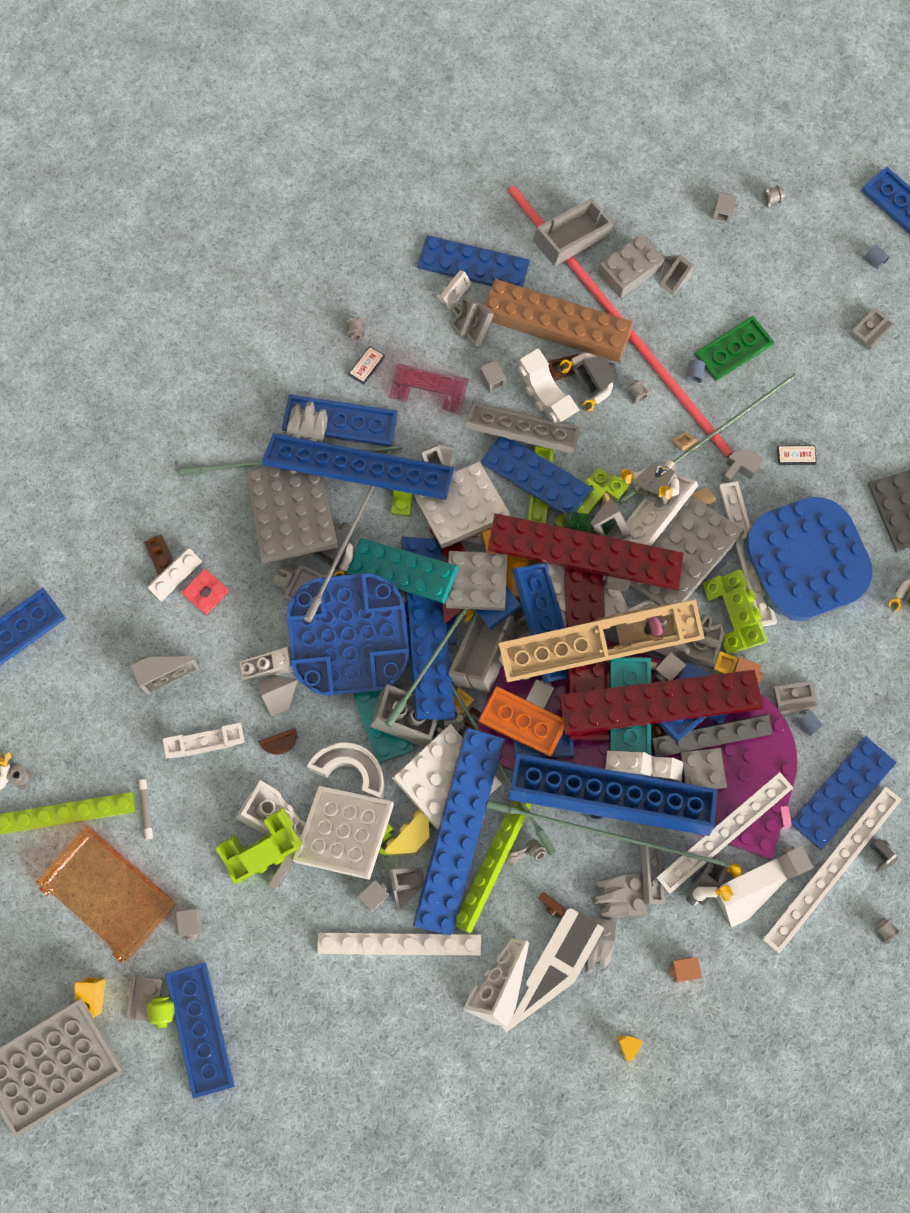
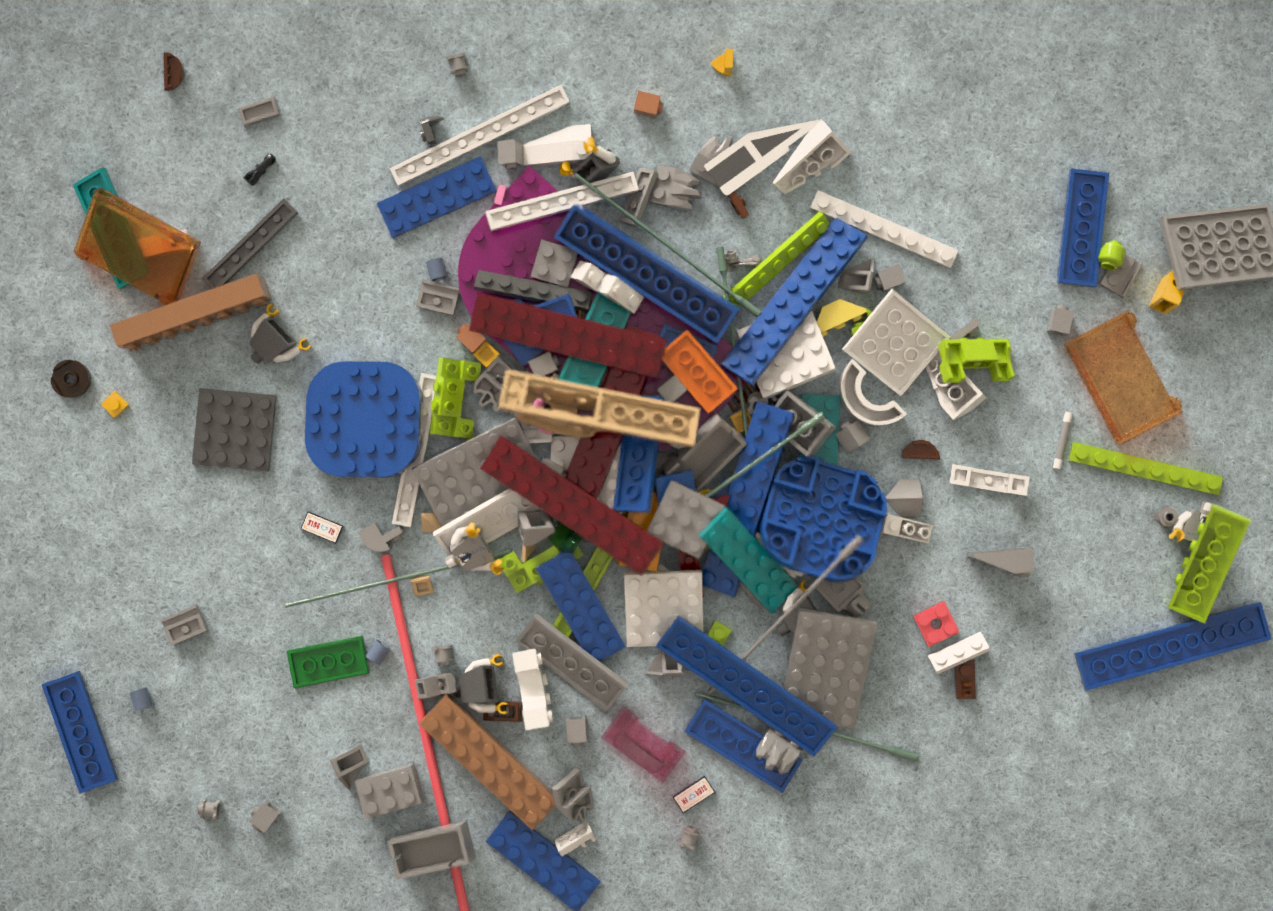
camera: 155 degrees left, 15 degrees up
(350, 727) = (851, 436): none -> light grey brick
(633, 363) = (435, 685): none -> light grey brick

